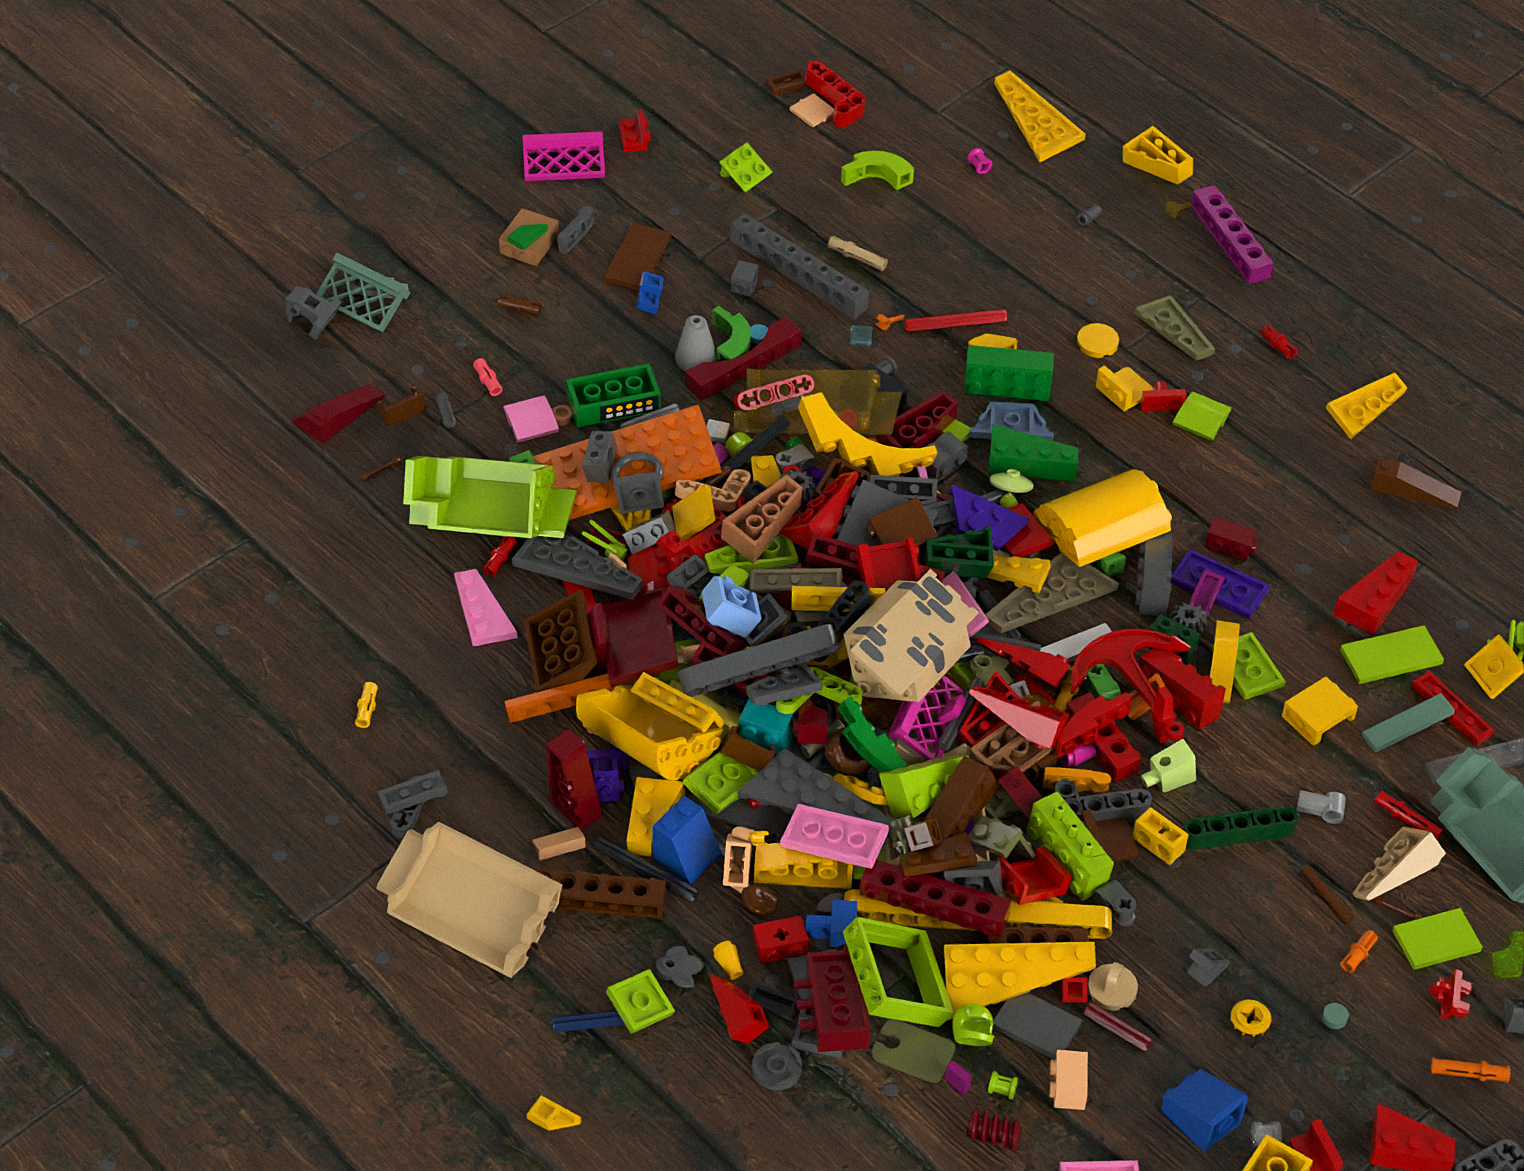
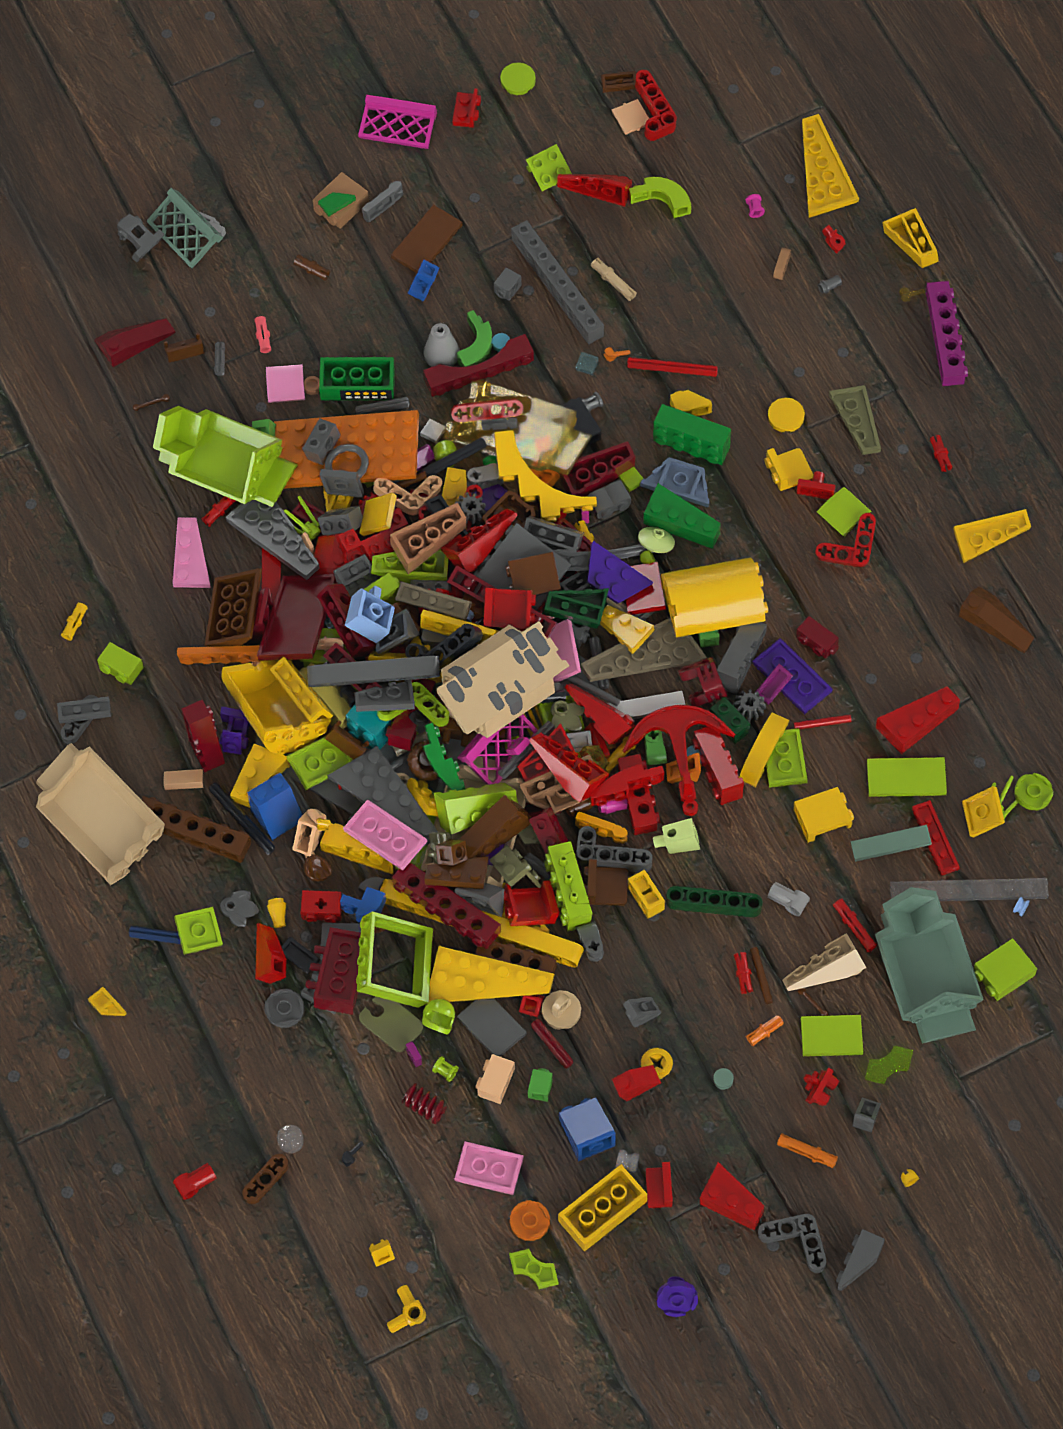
camera: 20 degrees right, 15 degrees up
(438, 735) = (120, 664): none -> lime brick
(678, 98) = (518, 78): none -> lime tile
(814, 172) = (603, 187): none -> red wedge
(1031, 206) = (782, 264): none -> medium nougat beam
(1074, 174) = (831, 238): none -> red piece
(1125, 1074) = (540, 1084): none -> bright green brick
(1140, 595) = (709, 679): none -> dark red piece
(1230, 450) = (852, 552): none -> red beam
(1238, 1041) = (636, 1081): none -> red slope
(1273, 621) = (822, 722): none -> red bar
(1306, 895) = (743, 973): none -> red pin

